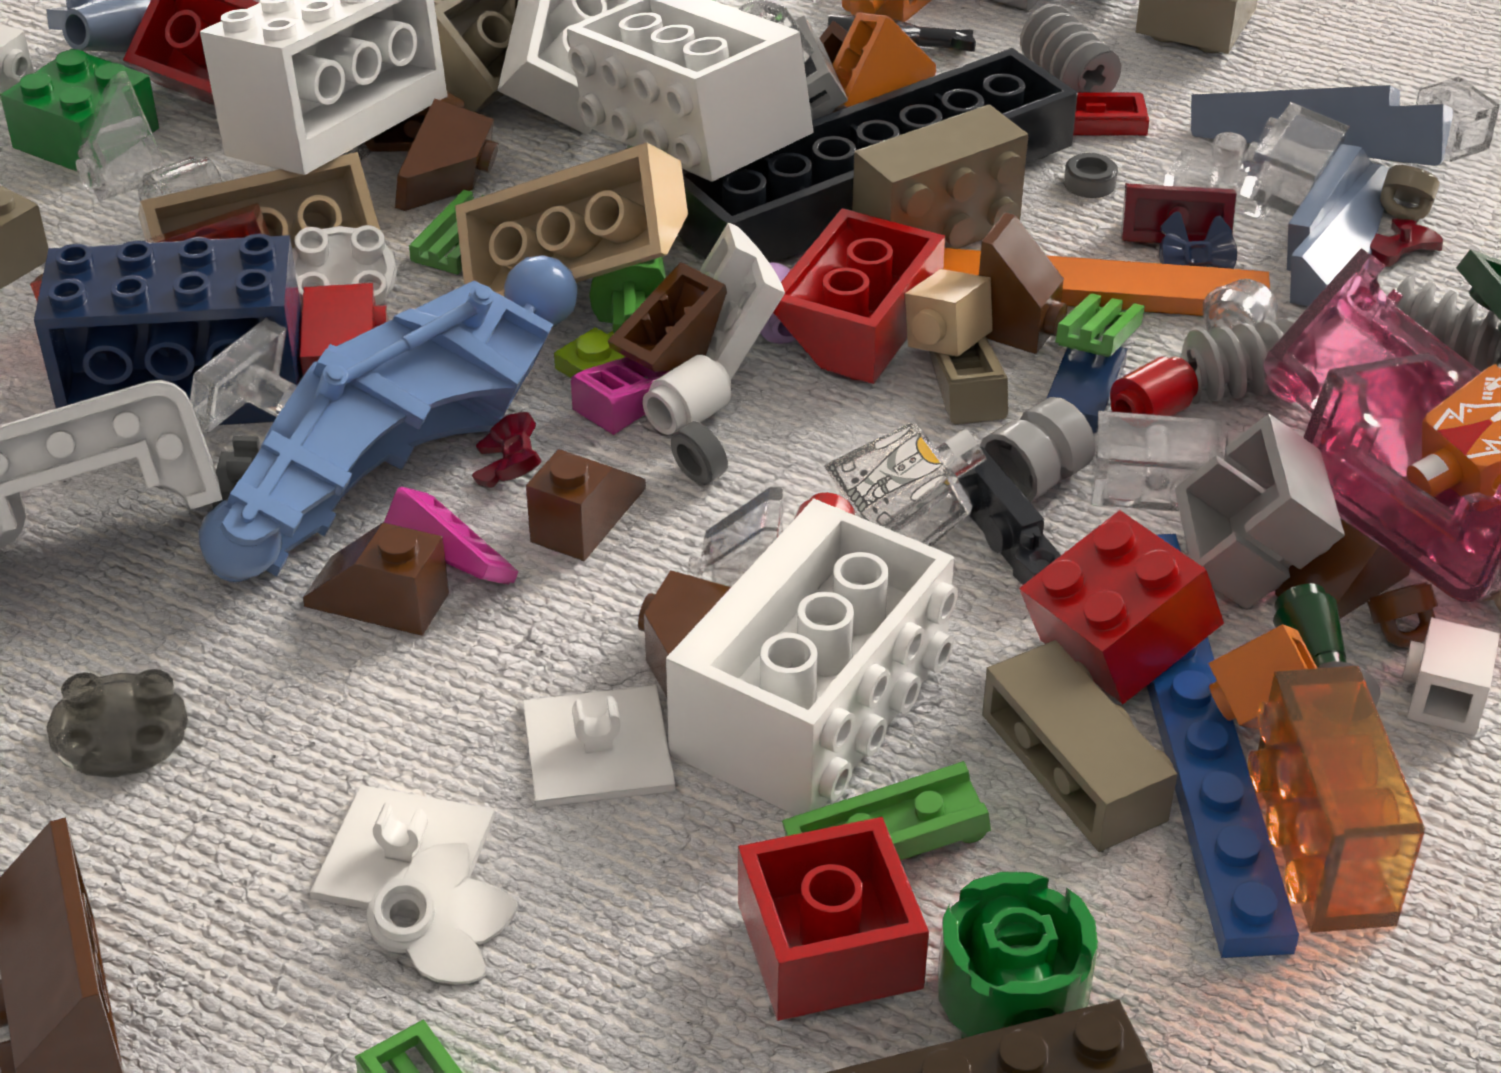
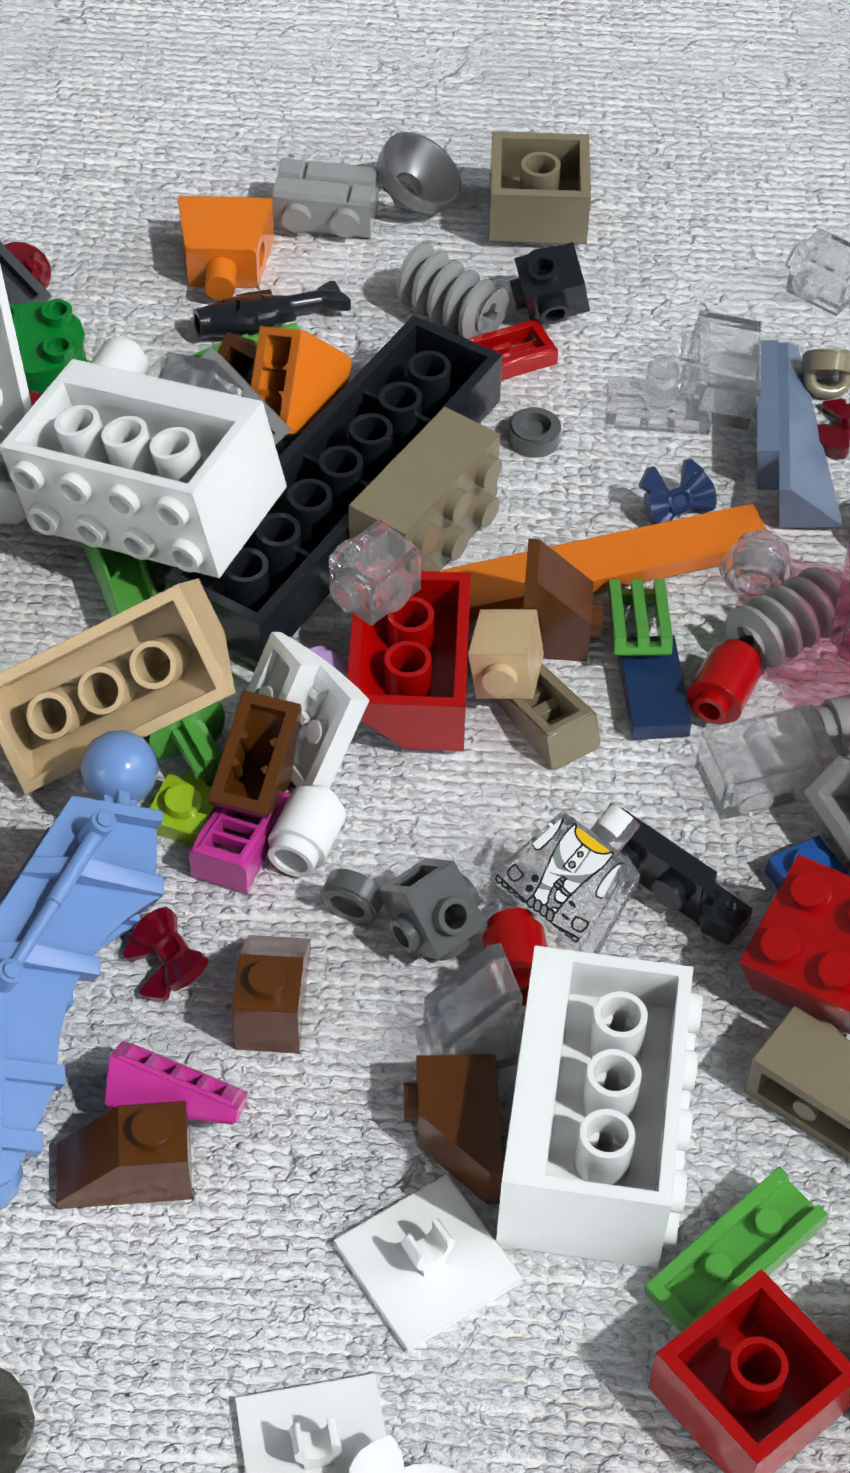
camera: 25 degrees left, 10 degrees up
(763, 455) = (433, 909): none -> dark grey brick
(847, 204) = (374, 572): none -> clear brick
(1042, 446) = (664, 782): light grey wheel -> none
(1151, 205) = (622, 462): dark red tile -> none
(1166, 65) = (550, 284): none -> black brick
(1373, 112) = (786, 309): sand blue wedge -> none

